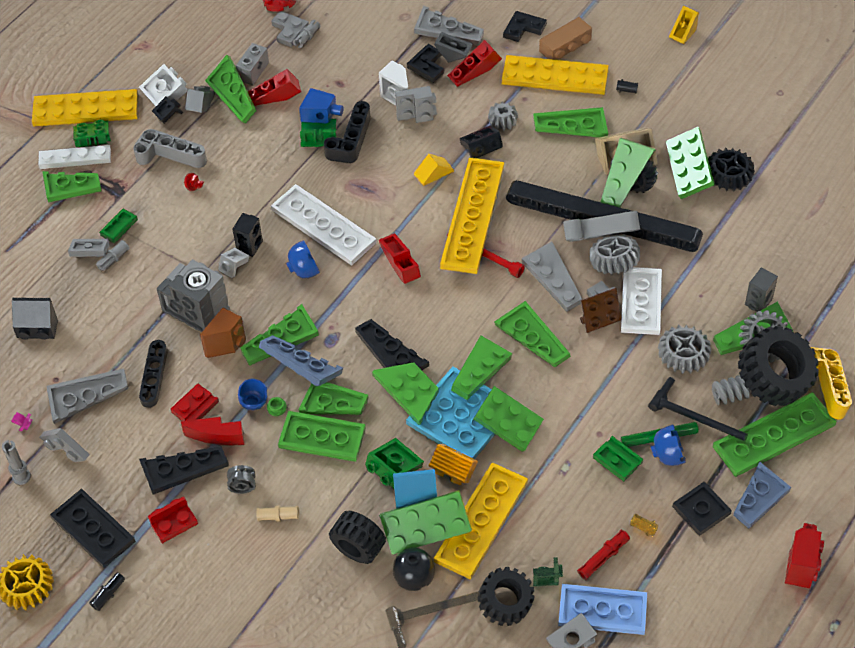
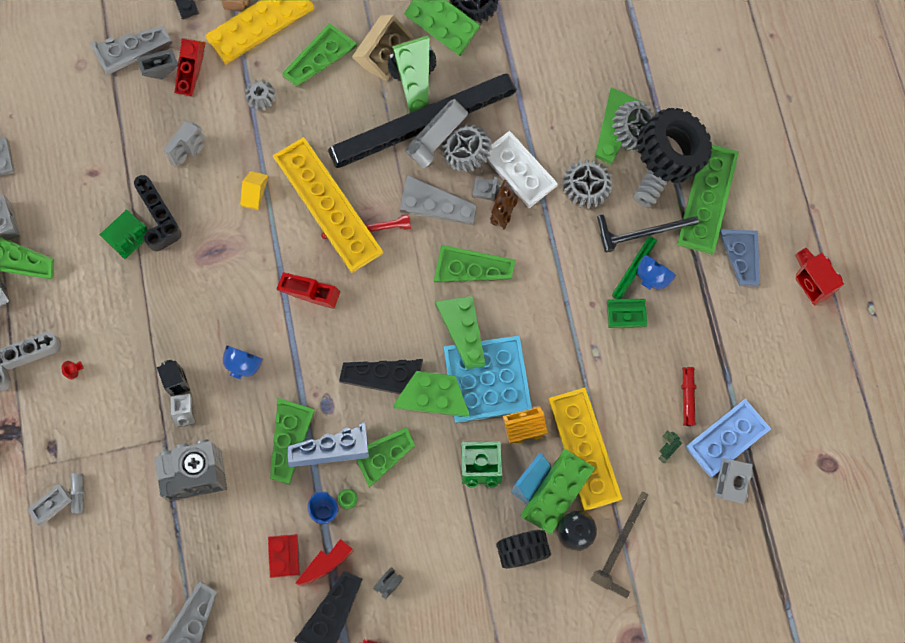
camera: 50 degrees left, 20 degrees up
(34, 318) = (79, 610): slope -> none
(118, 226) = (52, 463): green plate -> none
(156, 373) = (223, 560): black beam -> none
(223, 334) = (249, 480): dark orange slope -> none
(276, 89) = (48, 225): red slope -> none
(277, 513) = (440, 582): tan pin -> none
(306, 33) = (16, 150): light grey pin -> none
(319, 107) = (105, 211): blue torso -> none
(322, 436) = (406, 491): bright green plate -> none
(323, 224) = (218, 313): white plate -> none
(392, 79) = (147, 138): white slope -> none
(424, 64) = (147, 100): black plate -> none
(482, 141) = (265, 131): black bracket -> none
(508, 419) = (526, 353): bright green plate -> none
(512, 581) = (677, 487): black tyre -> none
(644, 525) = (692, 348): clear yellow pin -> none
(701, 508) = (716, 300): black plate -> none
(761, 290) = (597, 89): dark grey brick -> none
(833, 382) = (719, 127): yellow beam -> none

